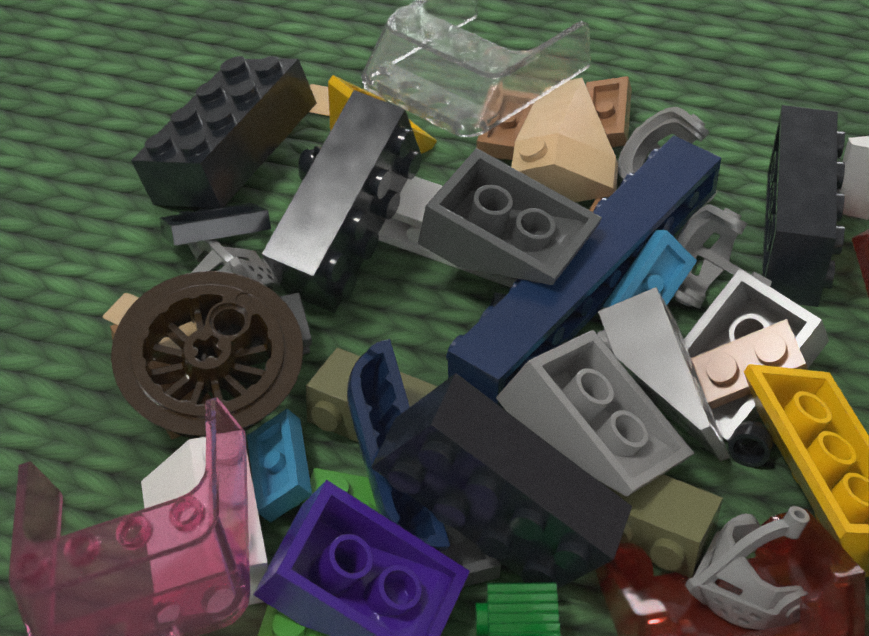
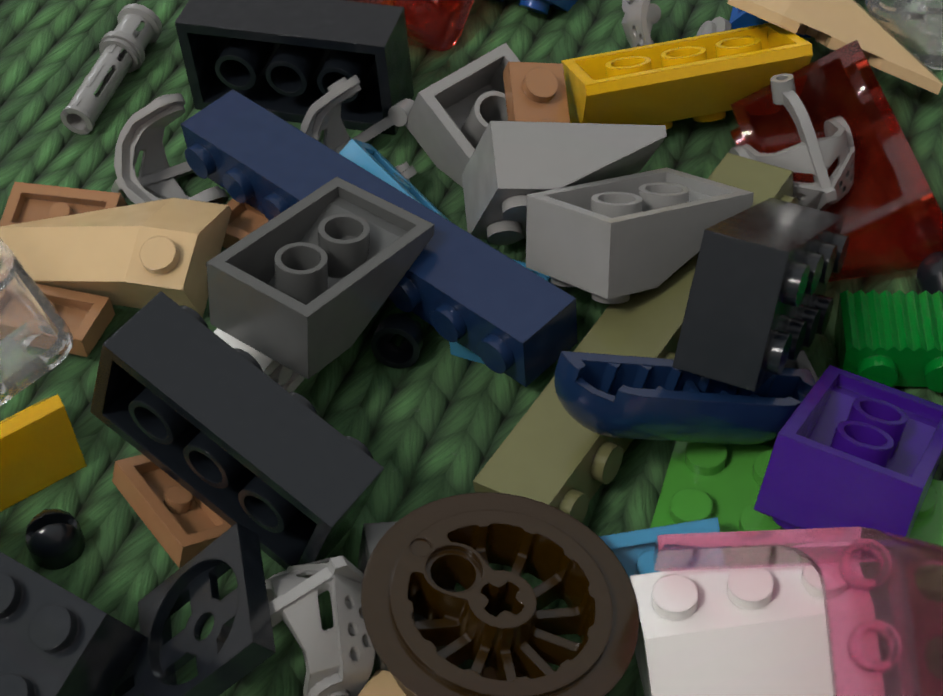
camera: 80 degrees left, 0 degrees up
(736, 107) = (85, 106): none -> light grey pin

